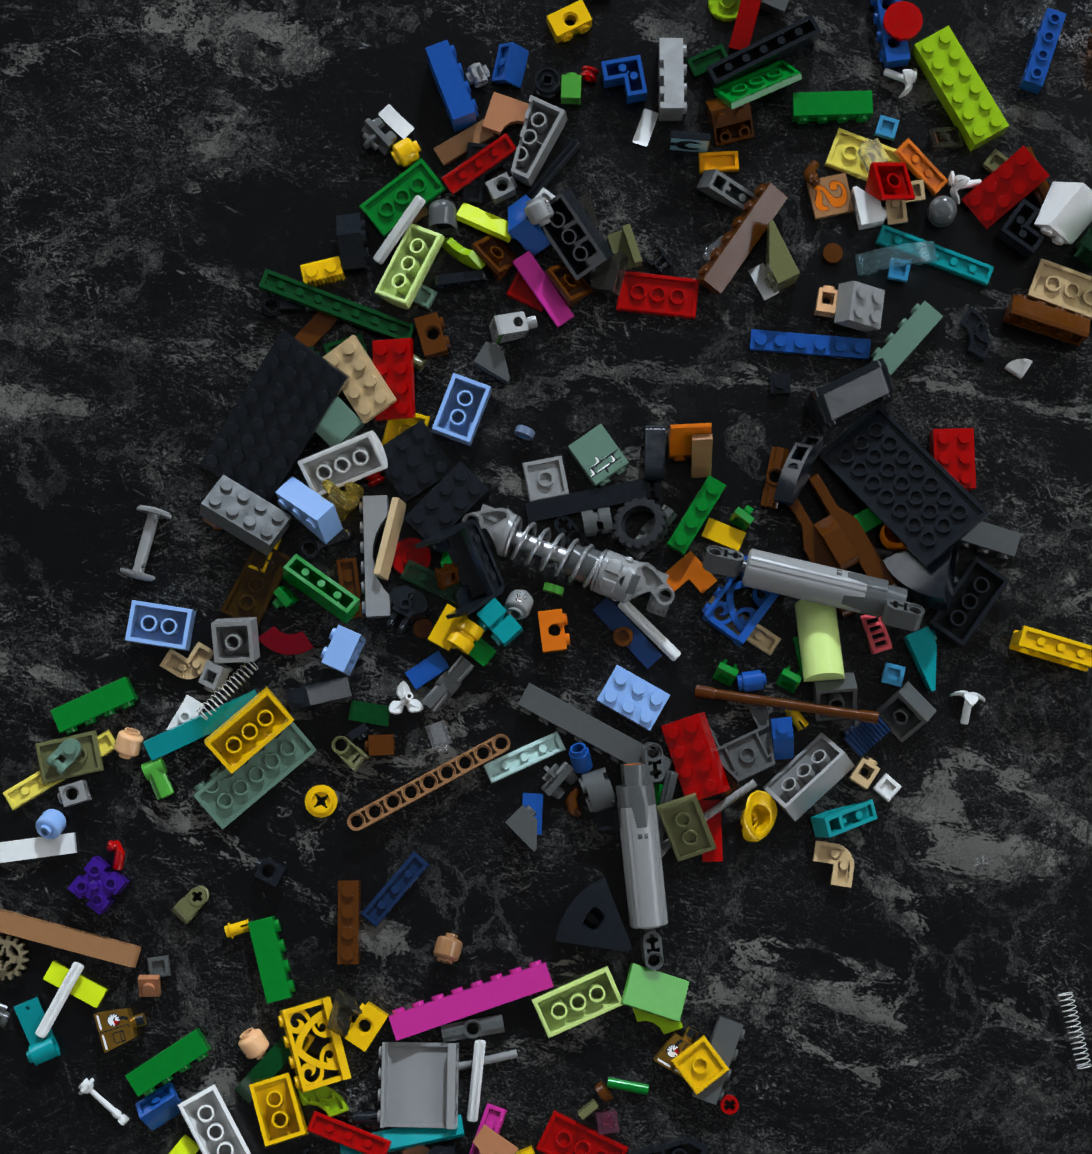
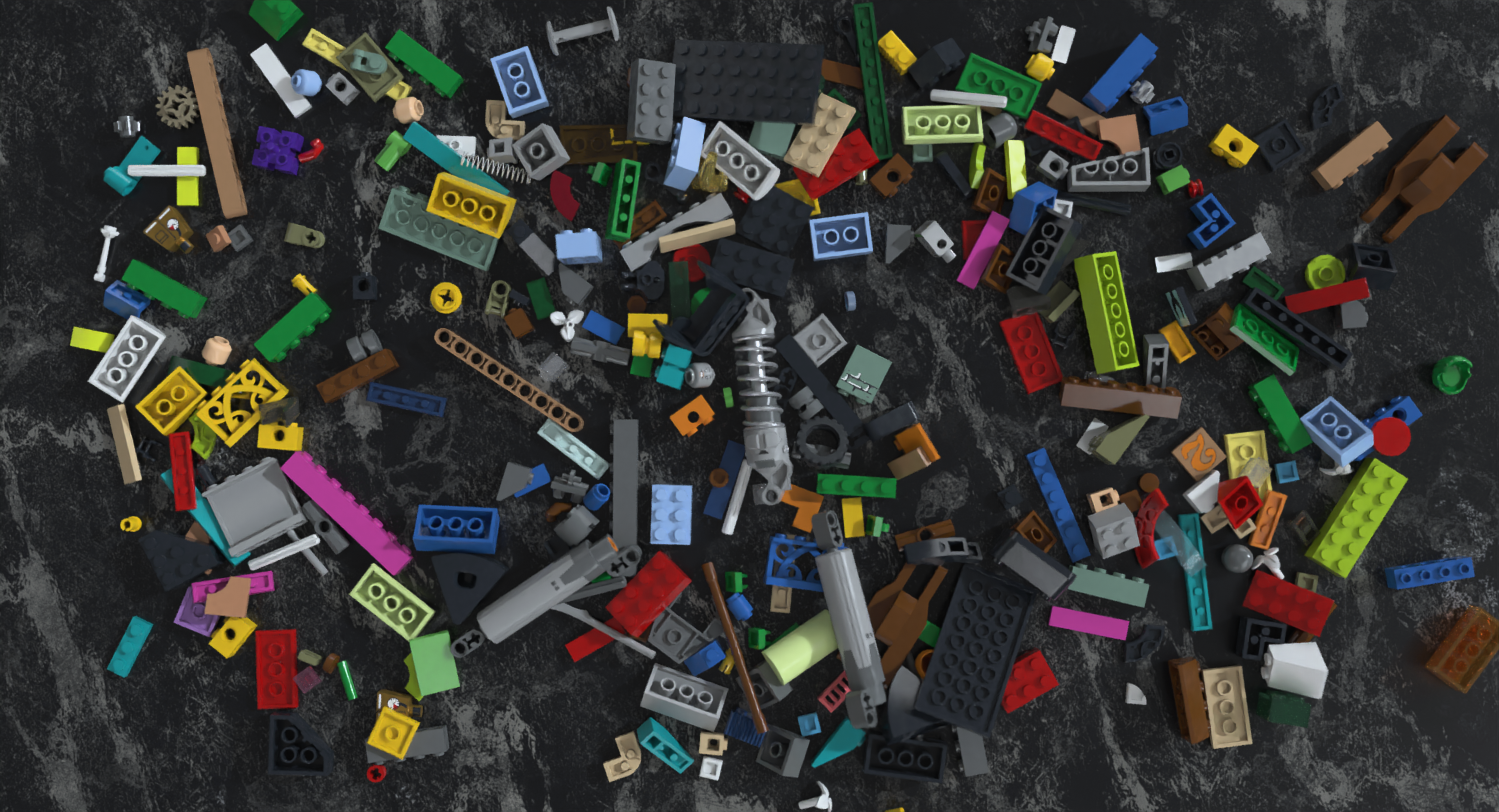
camera: 60 degrees right, 5 degrees up
(324, 900) = (363, 346): none -> dark grey wheel
(374, 676) = (573, 285): none -> dark grey slope
(447, 575) = (690, 301): reddish brown tile -> none
(448, 948) = (379, 470): medium nougat head -> none
(539, 211) = (1047, 209): light grey head -> none
(541, 904) = (456, 529): none -> blue brick
(658, 209) = (1106, 312): none -> lime brick
(686, 827) = (585, 617): olive tile -> none
(761, 811) = (627, 672): yellow hat -> none
(810, 173) = (1208, 427): reddish brown arm -> none
(821, 375) = (1035, 531): none -> reddish brown slope
(839, 276) = (1131, 500): none -> reddish brown tile
(867, 274) = (1145, 524): none -> red tile
(873, 64) = (1337, 431): none -> light blue brick
(931, 373) = (1088, 622): none -> dark pink tile

